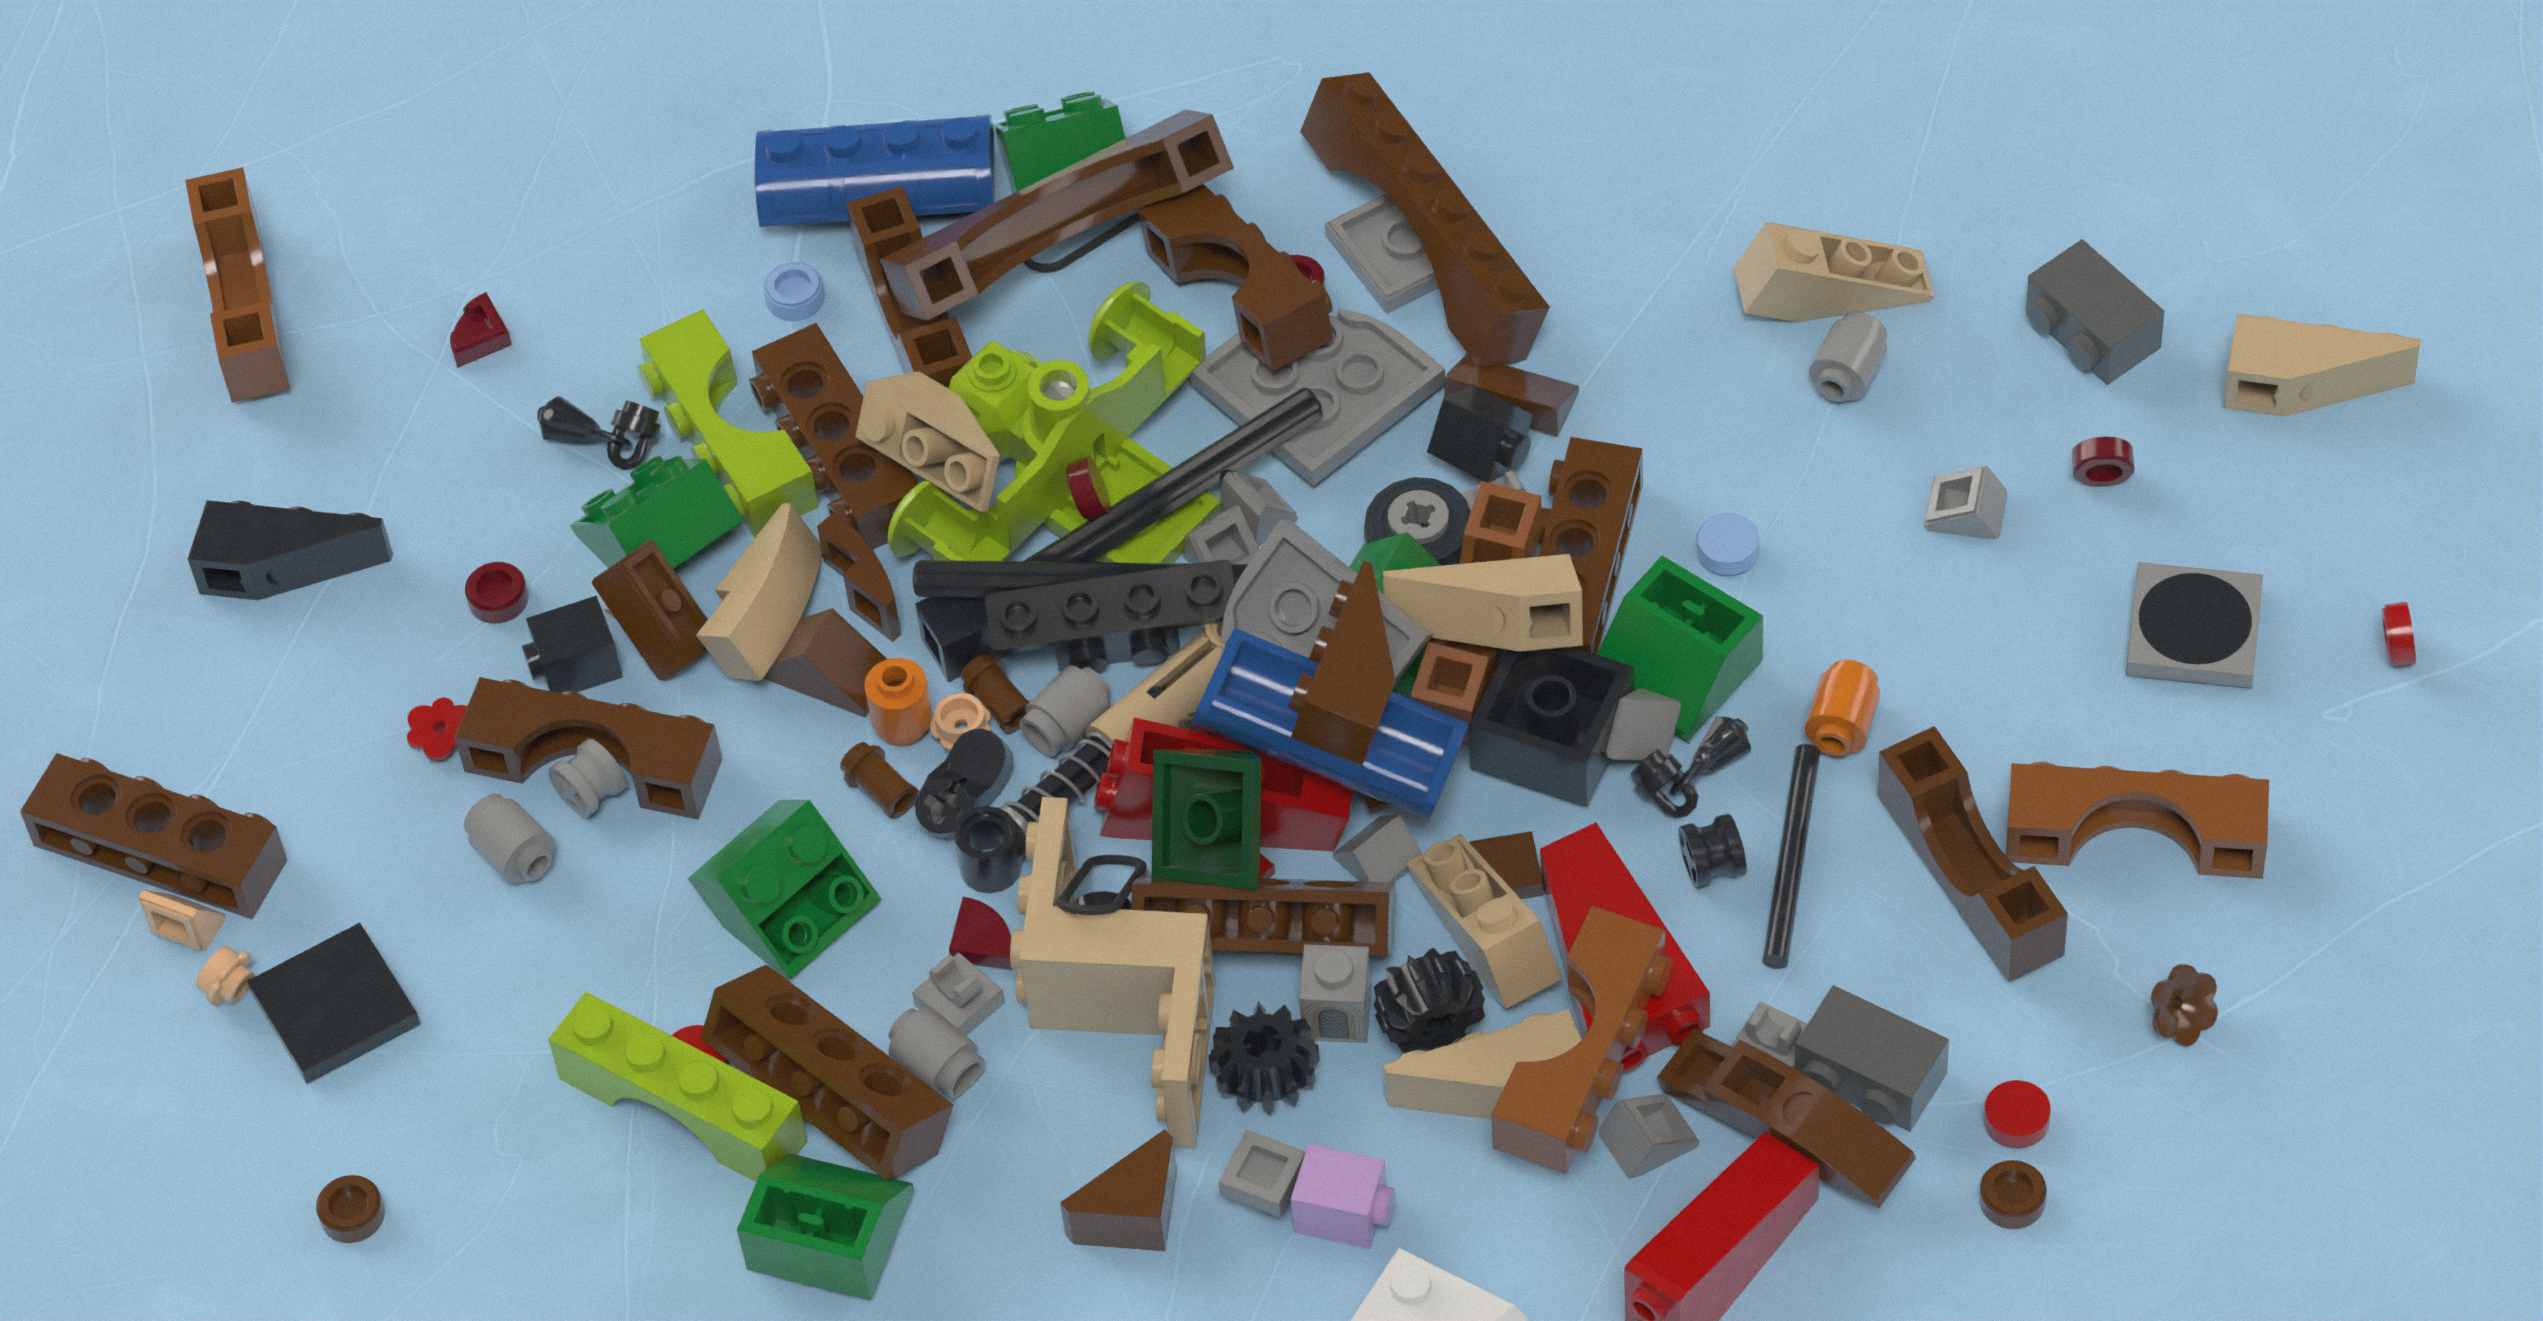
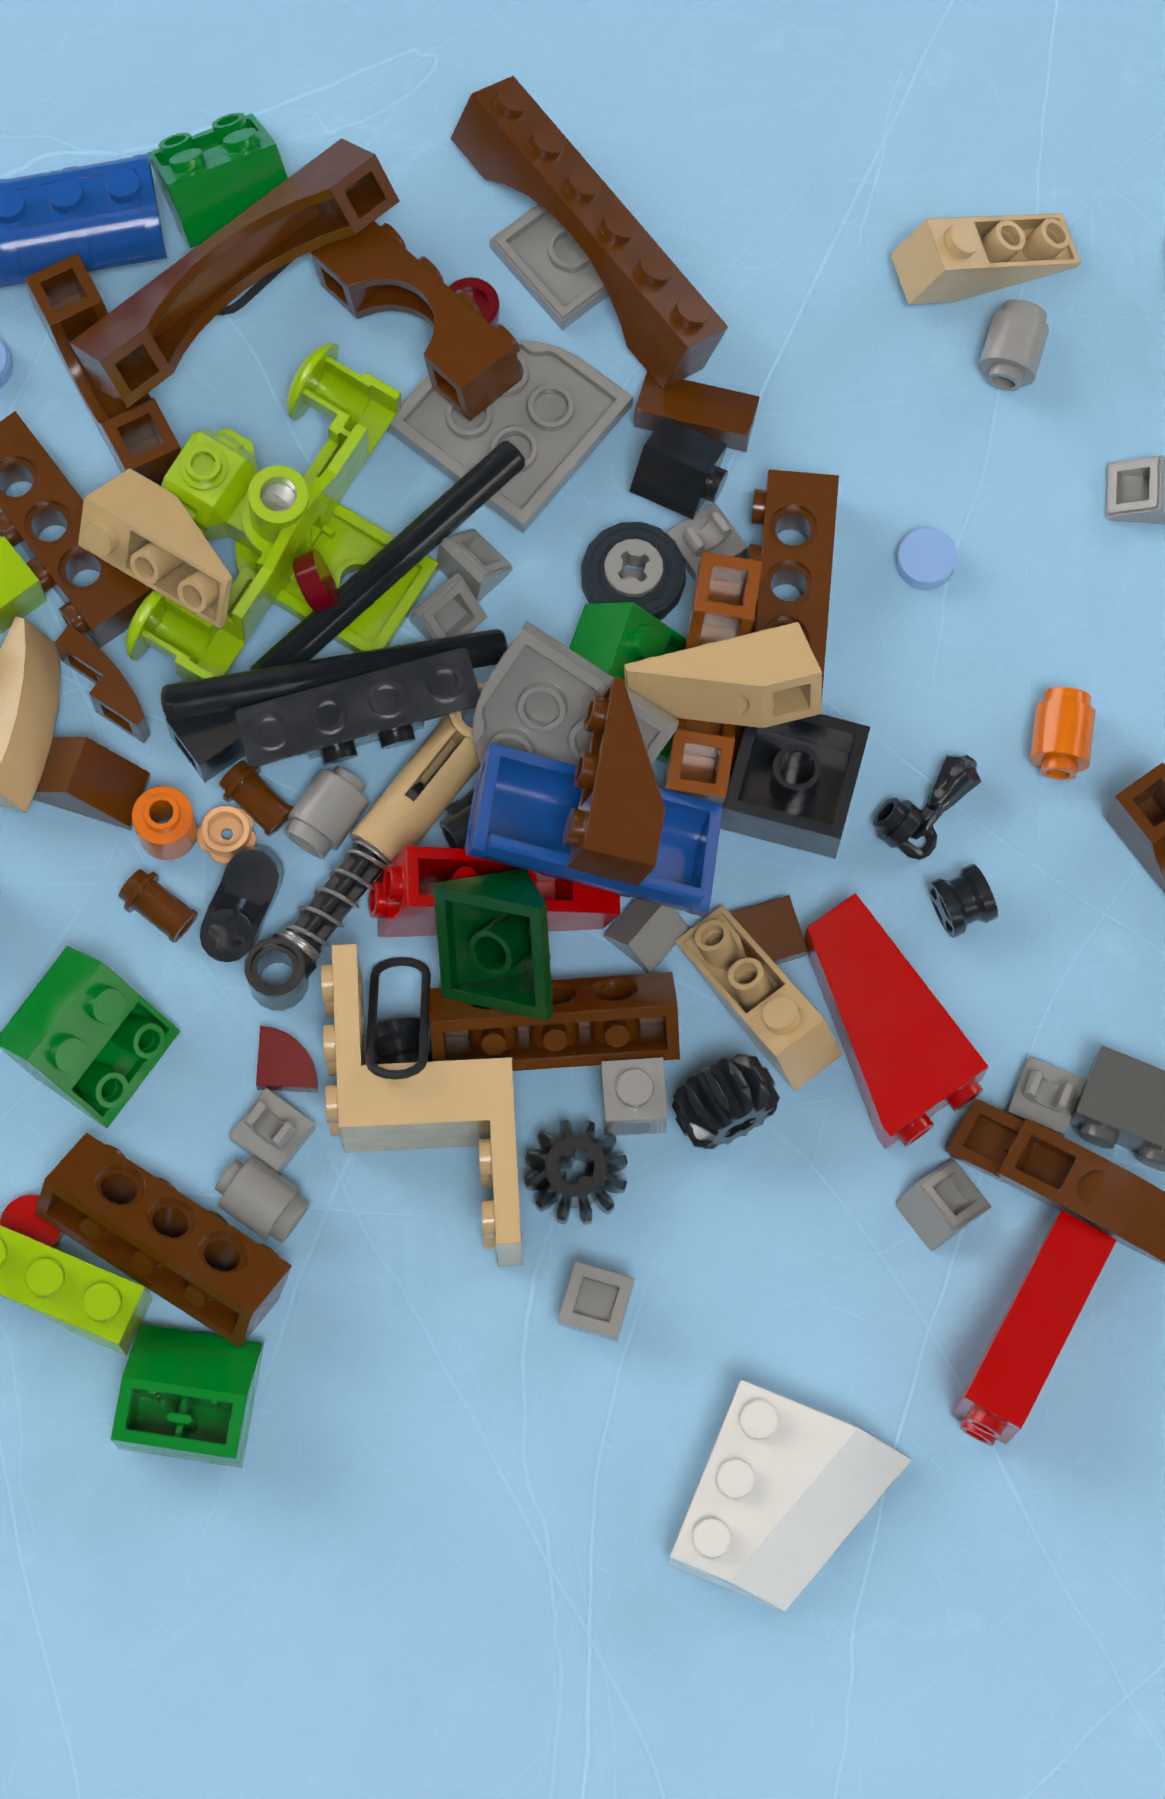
camera: 15 degrees left, 20 degrees up
(1127, 1202) = (474, 1341): reddish brown slope -> none
(1341, 1196) = (673, 1313): lavender brick -> none
(1473, 1072) = (811, 1164): tan slope -> none
(1553, 1102) = (901, 1069): dark orange arch -> none
(1642, 725) = (880, 774): light grey slope -> none
(1685, 641) = (903, 686): green slope -> none
(1791, 856) = (1033, 892): black bar -> none

